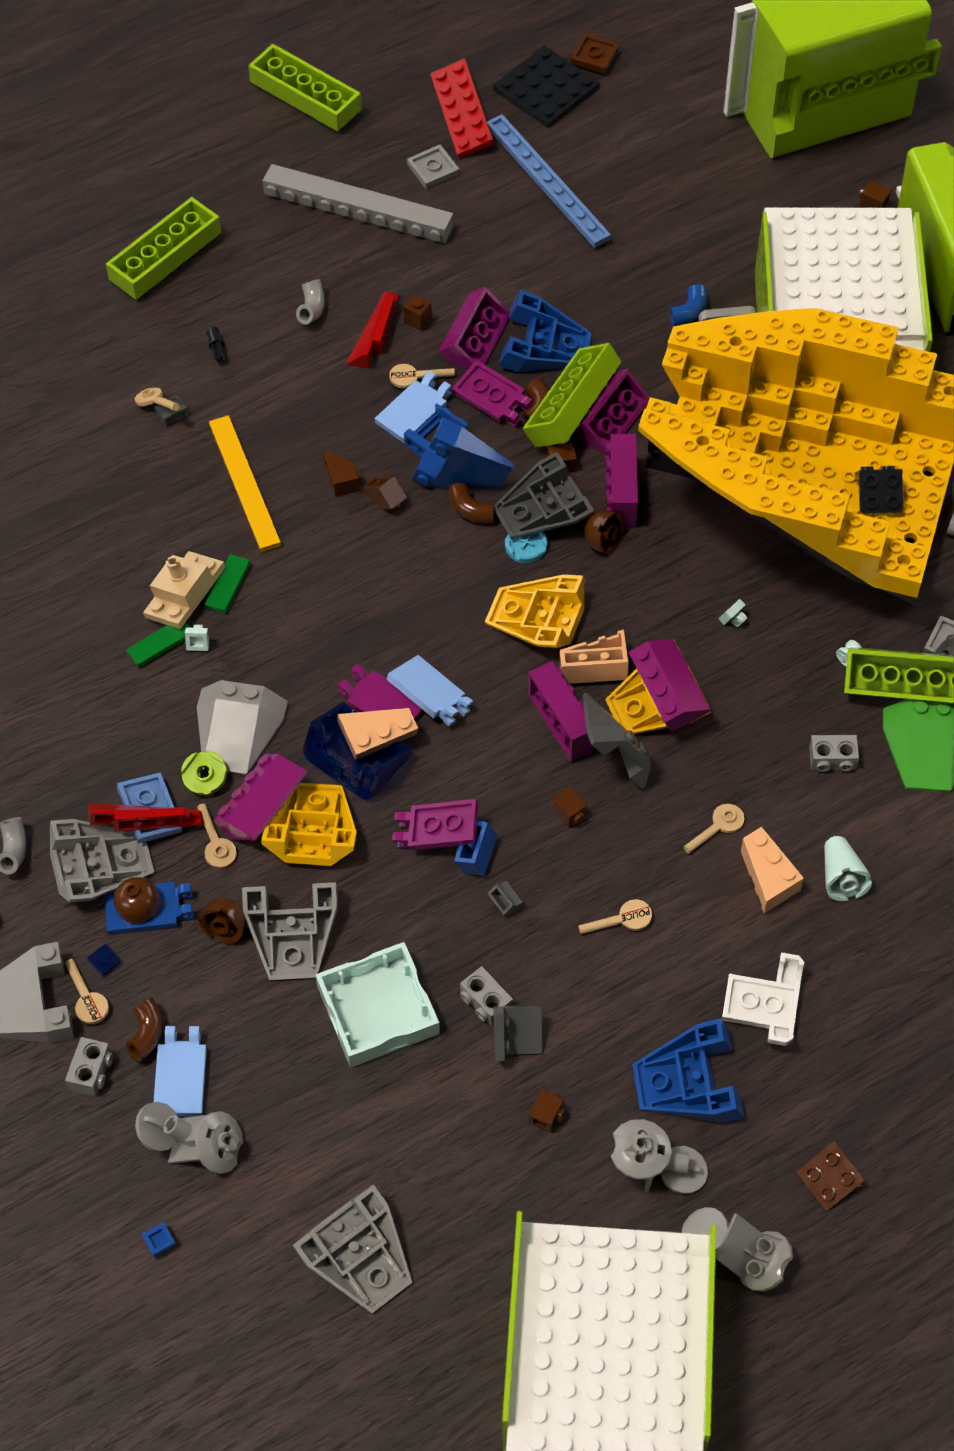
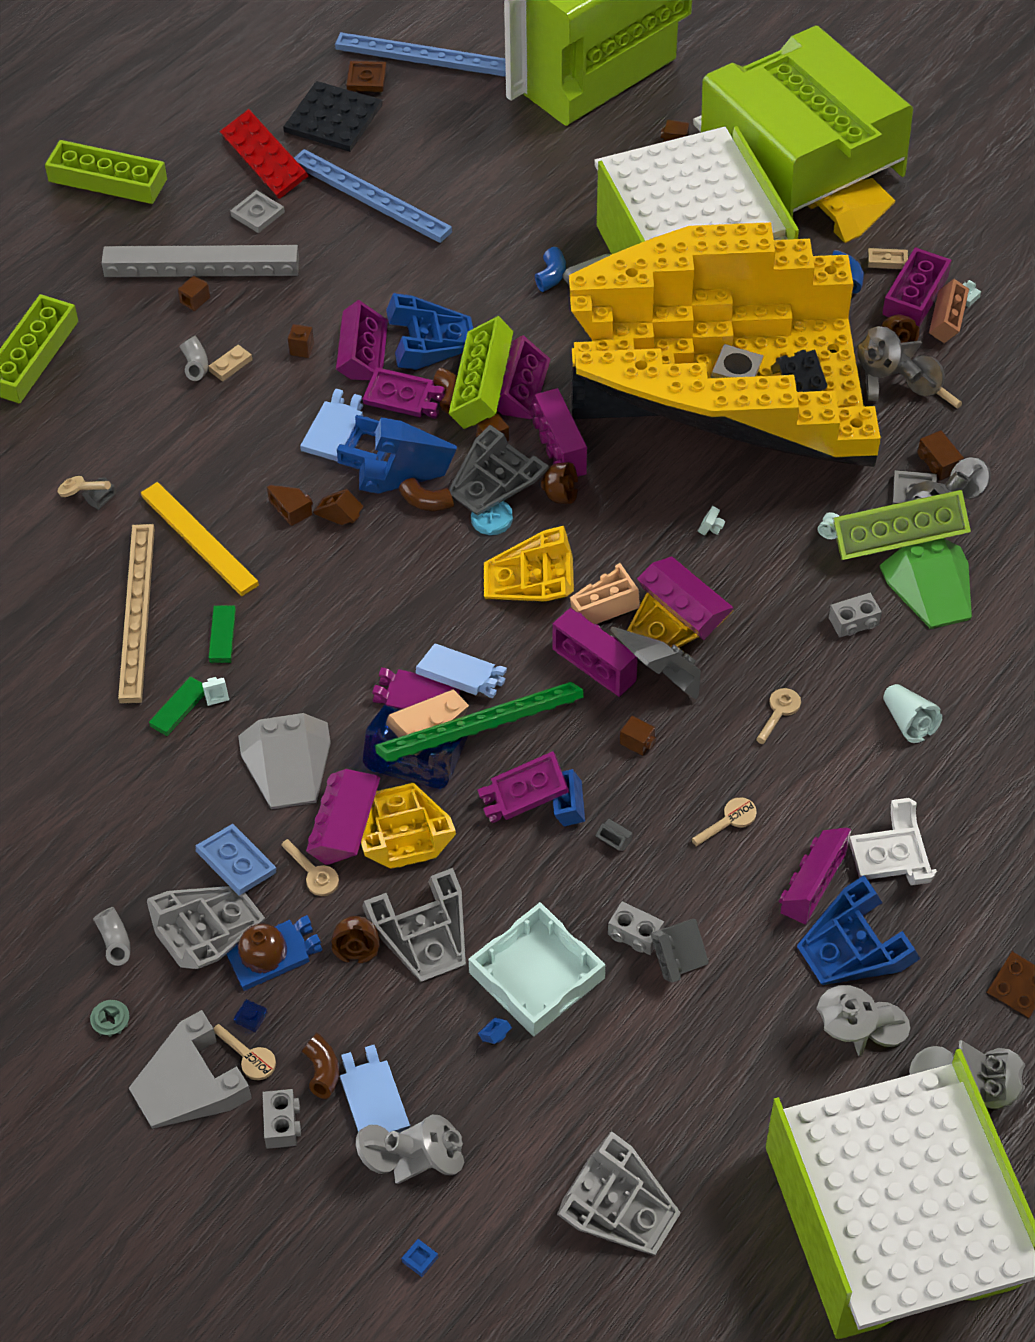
camera: 20 degrees left, 5 degrees down
(142, 817) = (236, 869): red wedge -> none
(157, 540) = (136, 614): none -> tan plate
(181, 588) = (180, 649): tan brick -> none
(208, 785) = (276, 824): lime plate -> none
(216, 344) = (117, 421): black axle -> none
(314, 1051) = (495, 1031): none -> blue plate
(338, 234) = (194, 293): none -> reddish brown brick
(344, 315) = (230, 363): none -> tan plate
(375, 332) = (265, 370): red wedge -> none
(405, 374) = (312, 400): tan piece -> none
(422, 747) = (478, 721): none -> green plate
(546, 1111) = (738, 1013): reddish brown brick -> none
(654, 42) = (421, 54): none -> medium blue plate
(678, 1001) = (815, 874): none -> magenta slope
(770, 870) = (845, 733): light nougat wedge -> none
(821, 463) = (736, 363): none -> light grey tile

